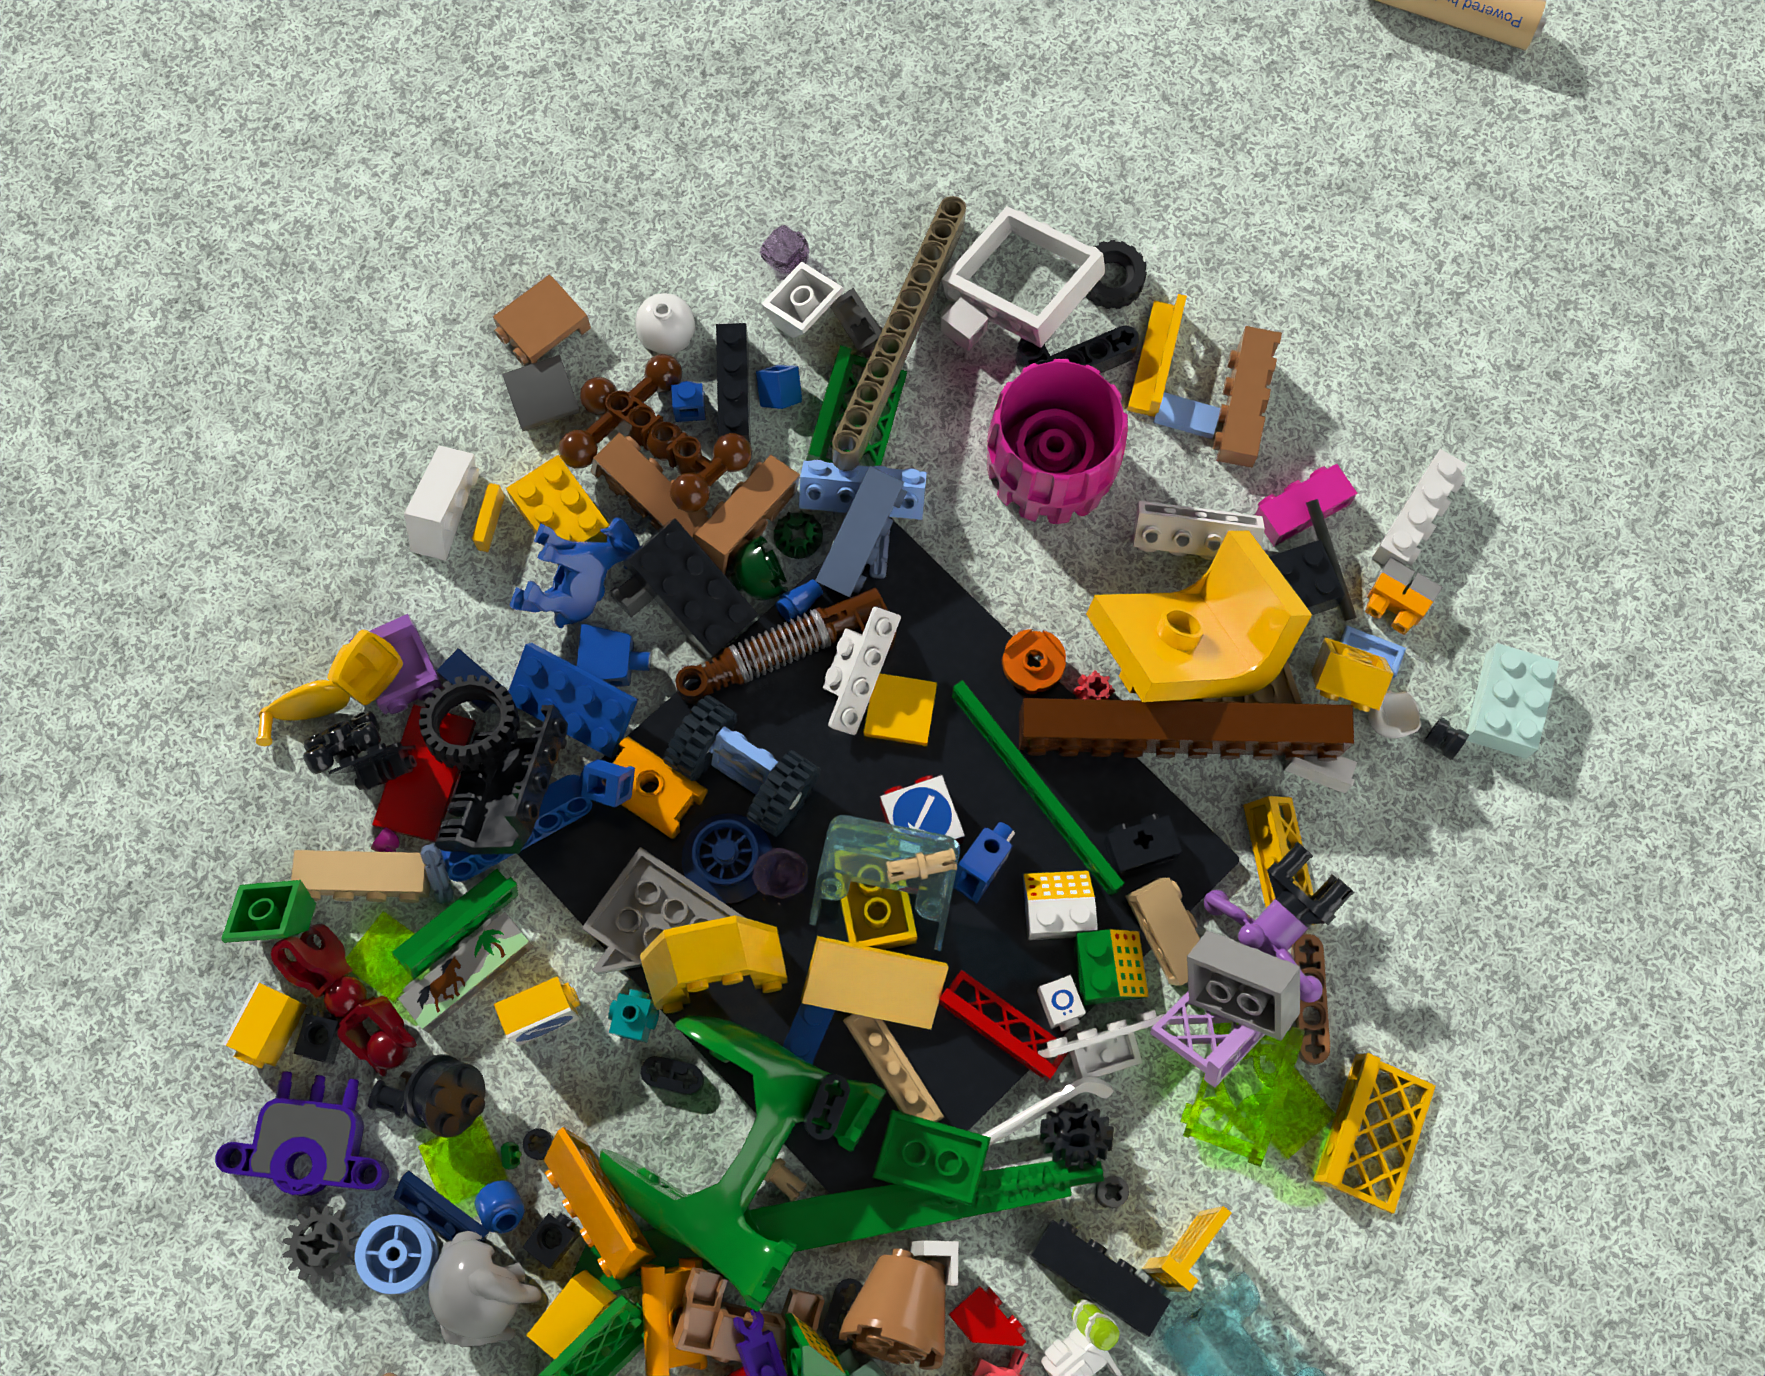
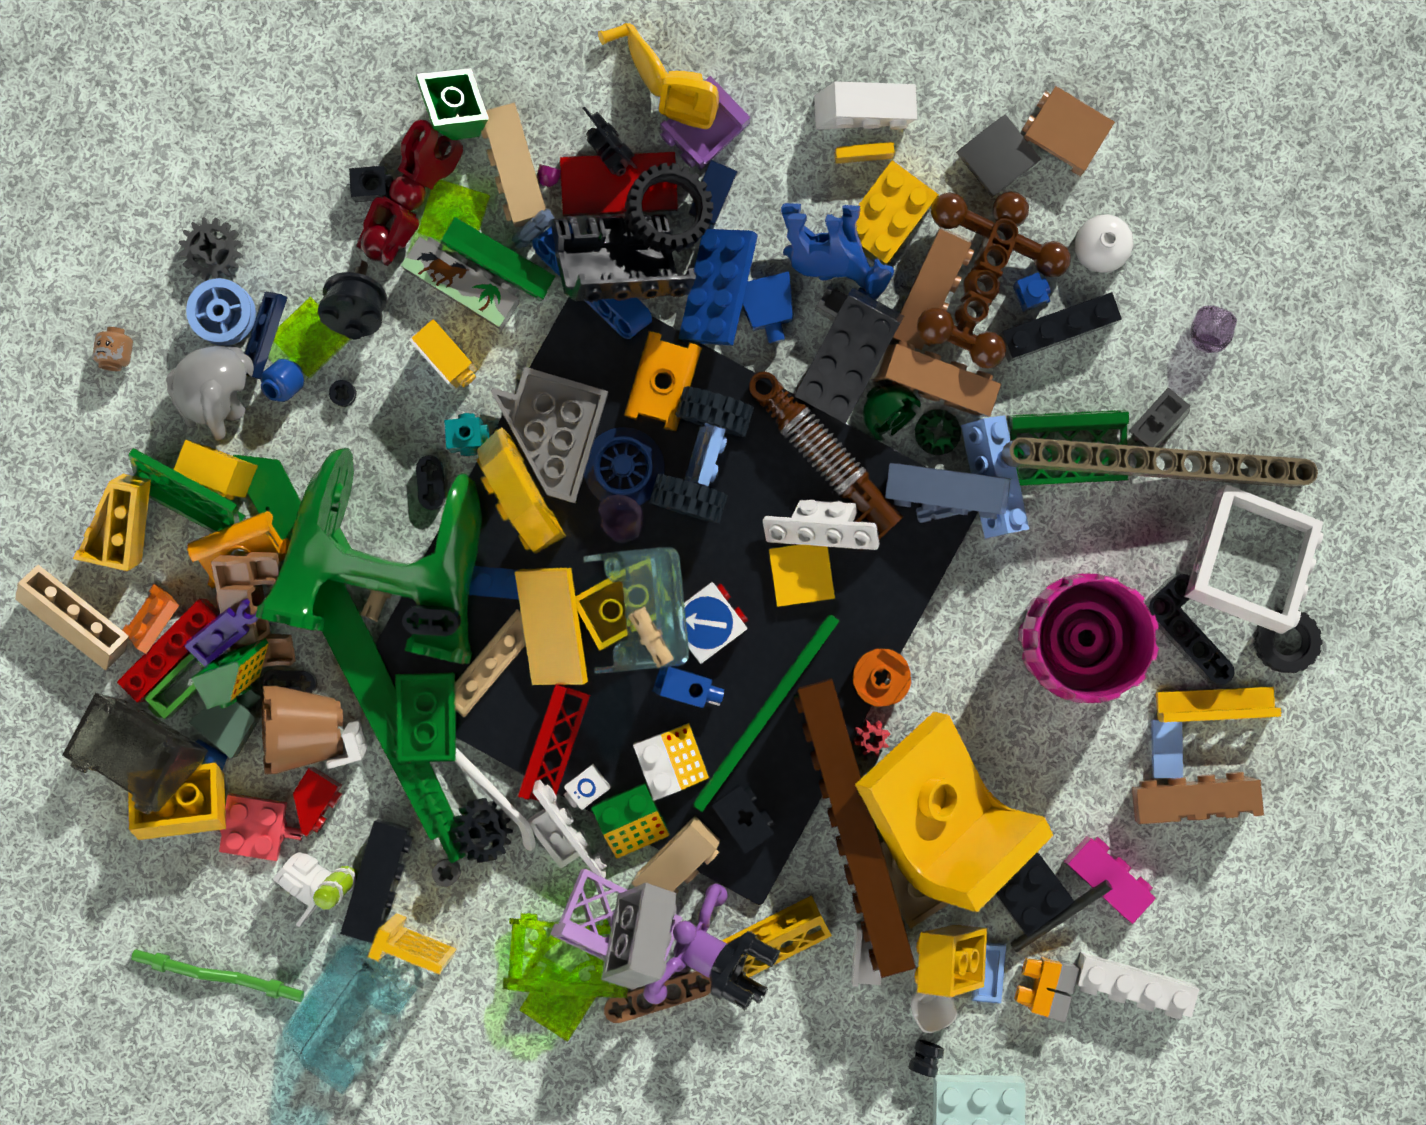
camera: 75 degrees right, 15 degrees up
(264, 1026) = (363, 136): yellow piece -> none
(300, 1127) = (297, 206): dark purple piece -> none
(341, 741) = (618, 105): black gear -> none
(387, 1099) = (339, 258): black bush -> none
(510, 1155) = (327, 373): green rock -> none
(537, 1245) = (259, 426): black brick -> none
(596, 1205) = (293, 469): light orange slope -> none
(607, 782) = (648, 345): blue brick -> none
(779, 386) = (1074, 368): blue panel -> none
(798, 600) = (871, 453): blue cone -> none
(800, 300) = (1162, 362): white slope -> none
(963, 323) = (1191, 517): white brick -> none
(1189, 529) = (1051, 785): white brick -> none
(1346, 1127) = (568, 1053): yellow fence -> none

